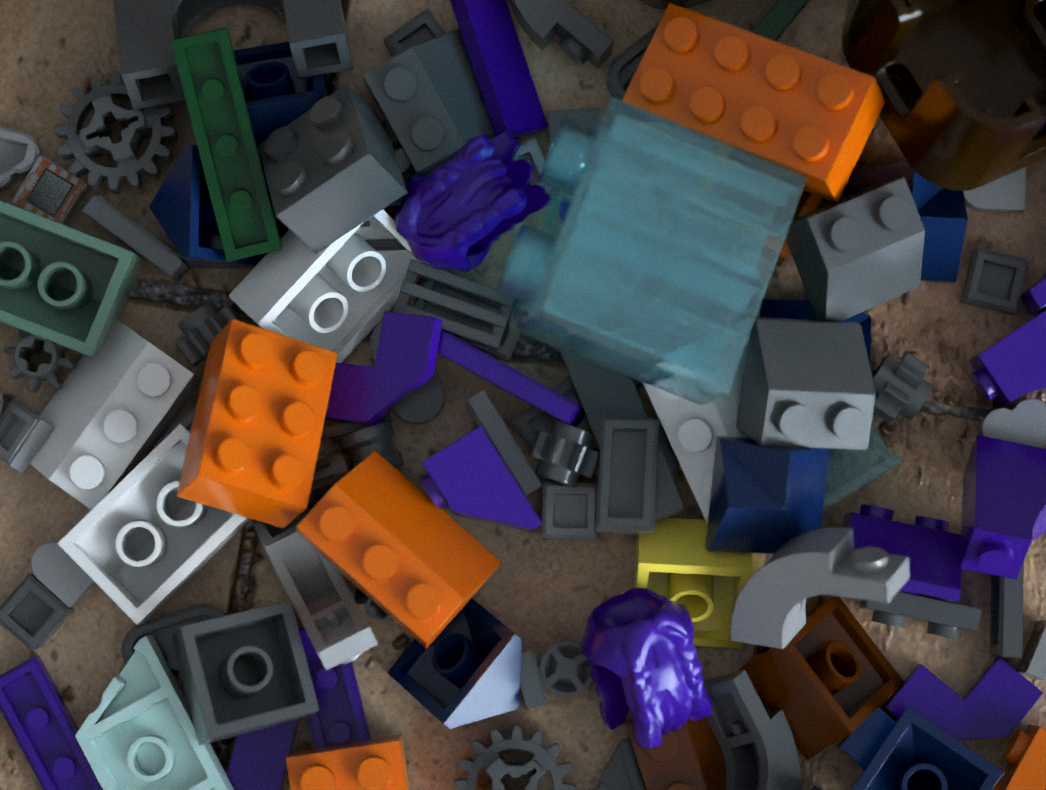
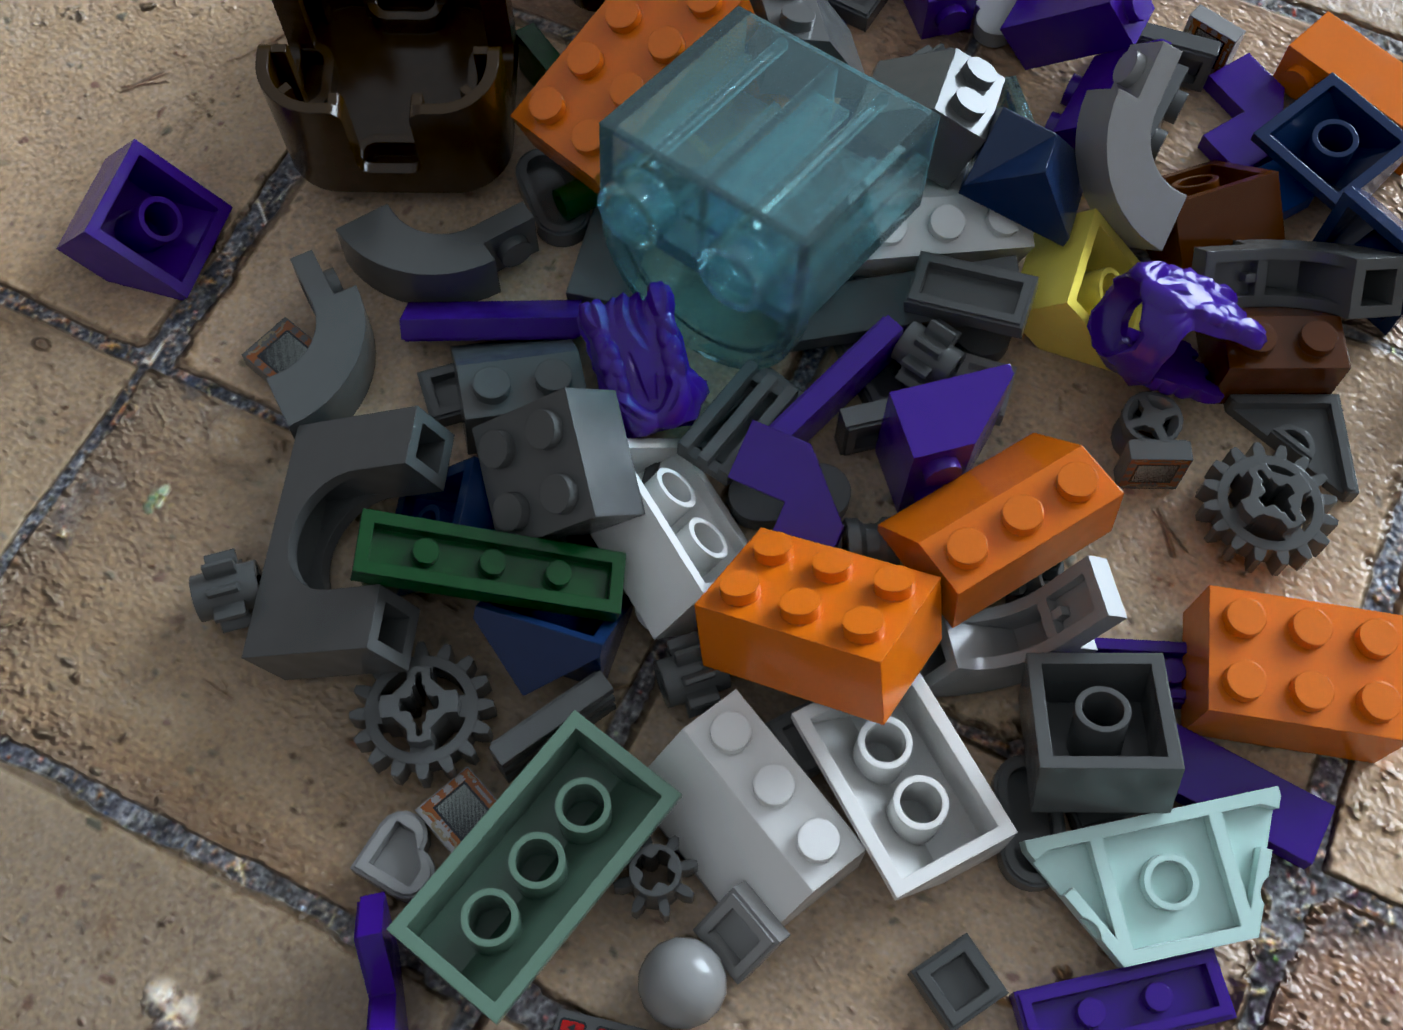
camera: 75 degrees left, 20 degrees down
(60, 573) = (915, 928): light grey tile -> none
(466, 670) = (1155, 520): dark blue slope -> none

